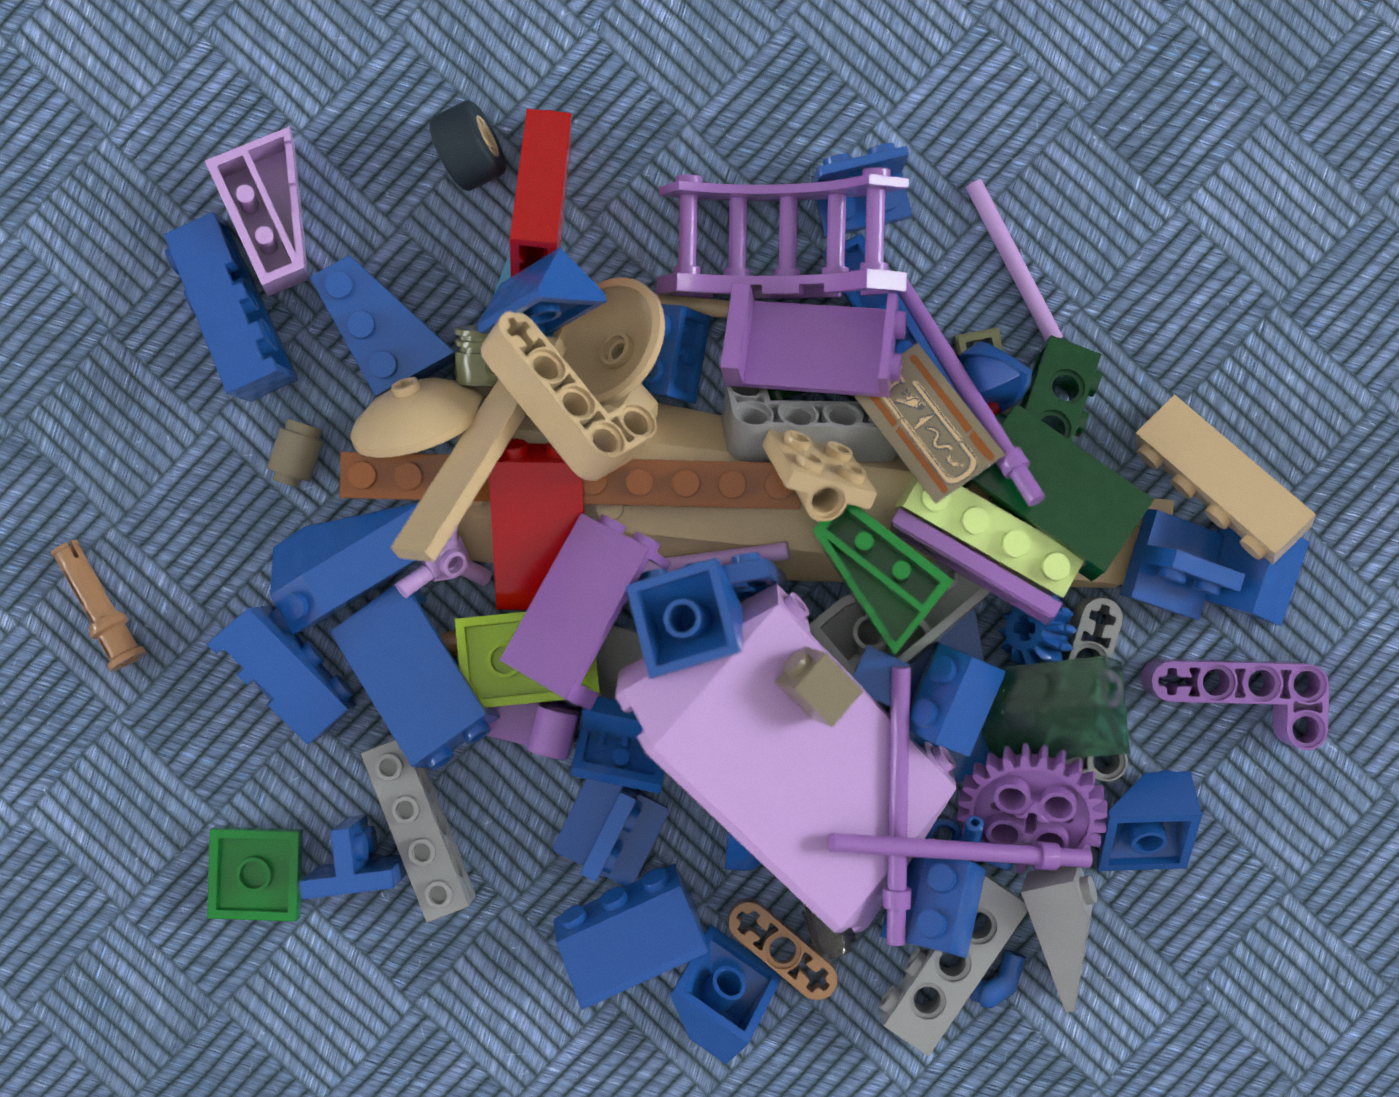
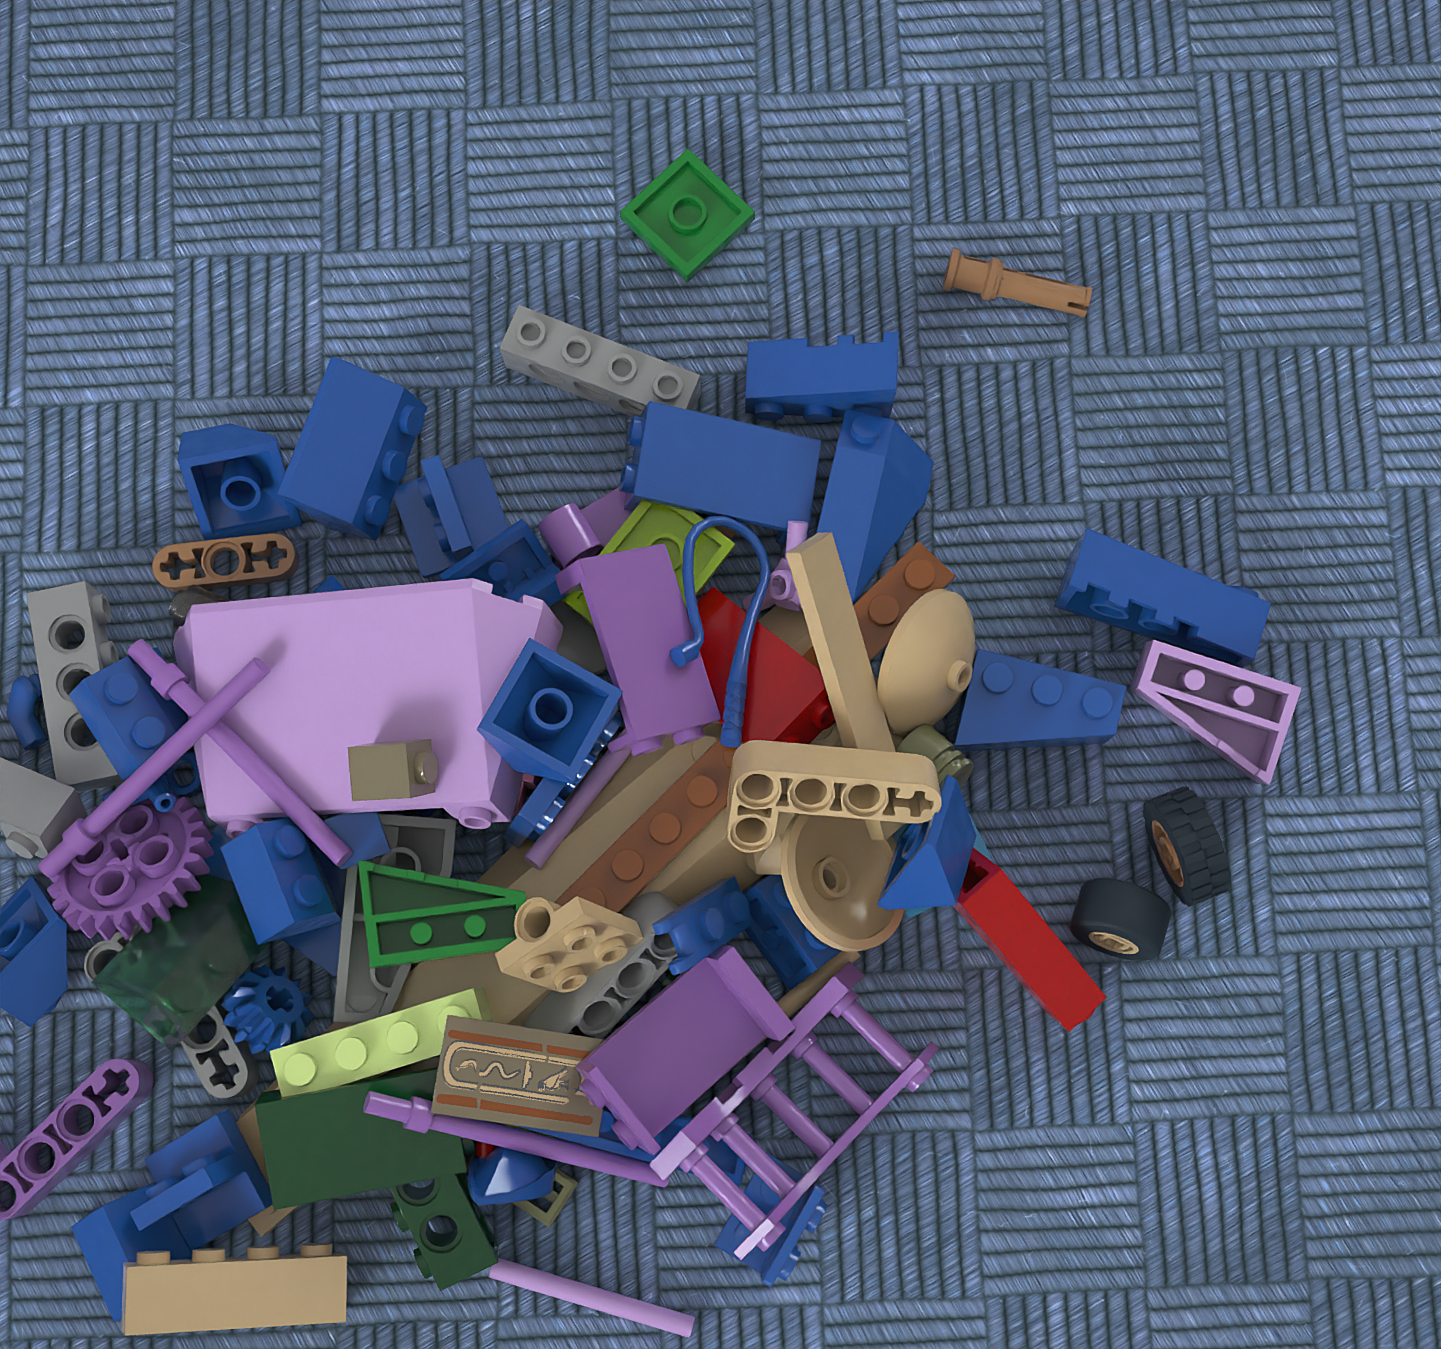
camera: 135 degrees right, 10 degrees down
(295, 453) = (993, 546): dark tan brick -> none
(353, 864) = (617, 290): blue bracket -> none
(379, 143) = (1187, 846): none -> black wheel
(556, 574) = (689, 650): none -> blue piece
(722, 401) = (705, 923): none -> blue hinge
(974, 567) = (366, 1002): medium lavender tile -> none

